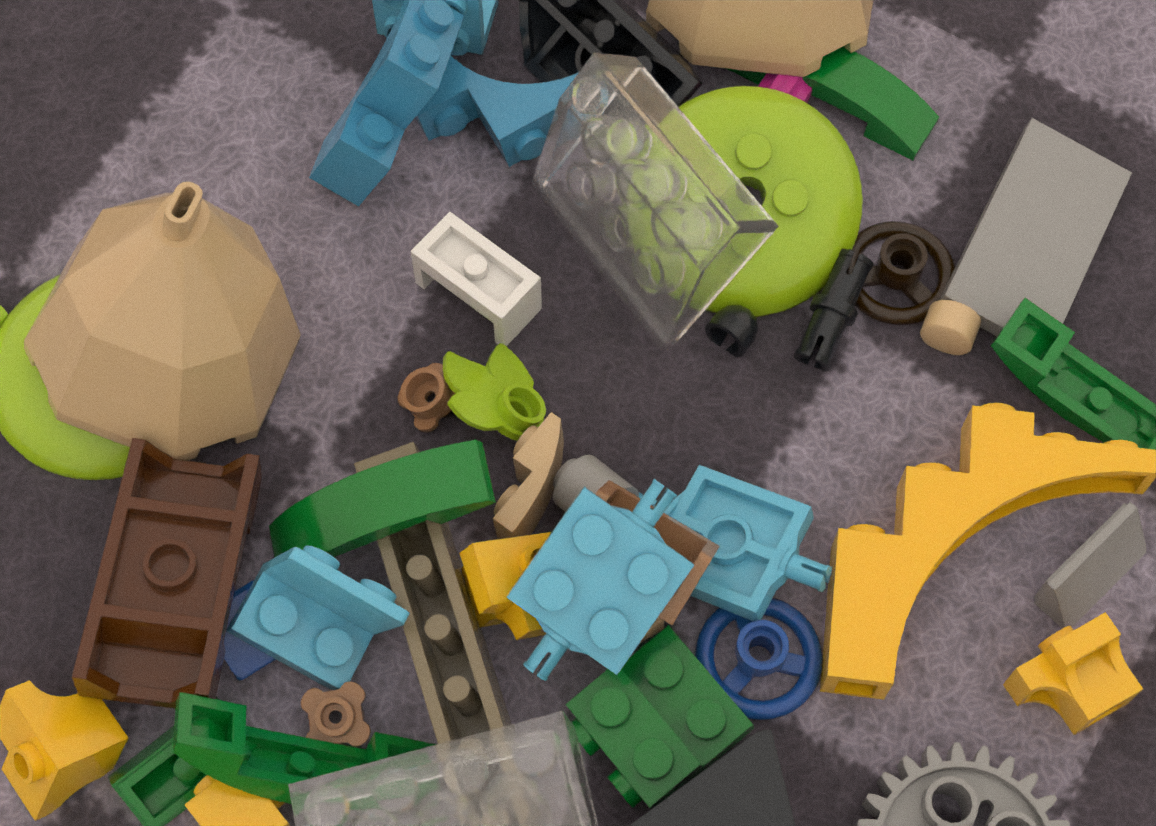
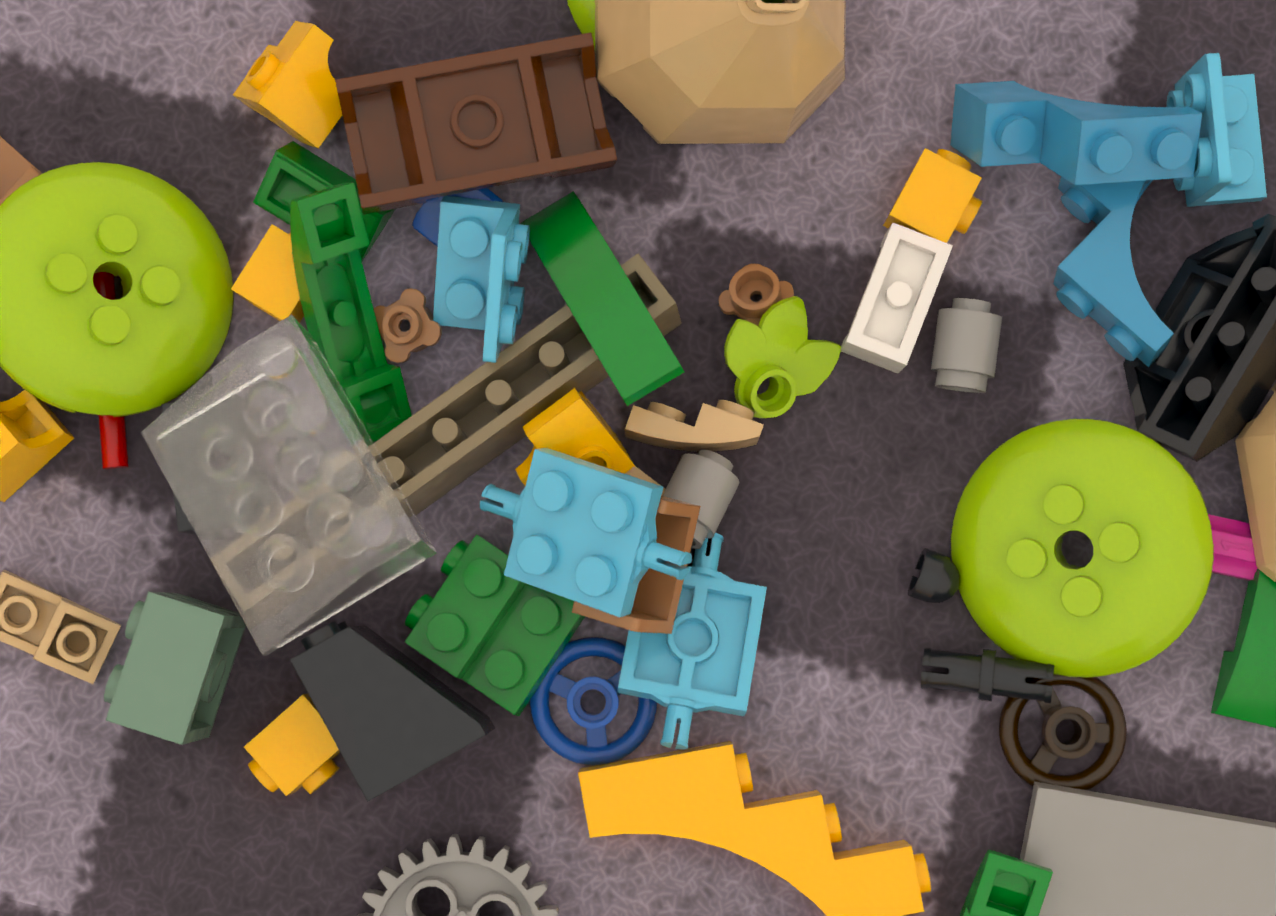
camera: 75 degrees right, 20 degrees up
(396, 221) = (937, 196): none -> yellow brick
(539, 241) = (966, 346): none -> light grey brick
(646, 196) = (1039, 445): clear slope -> none
(950, 327) = (1008, 802): tan piece -> none

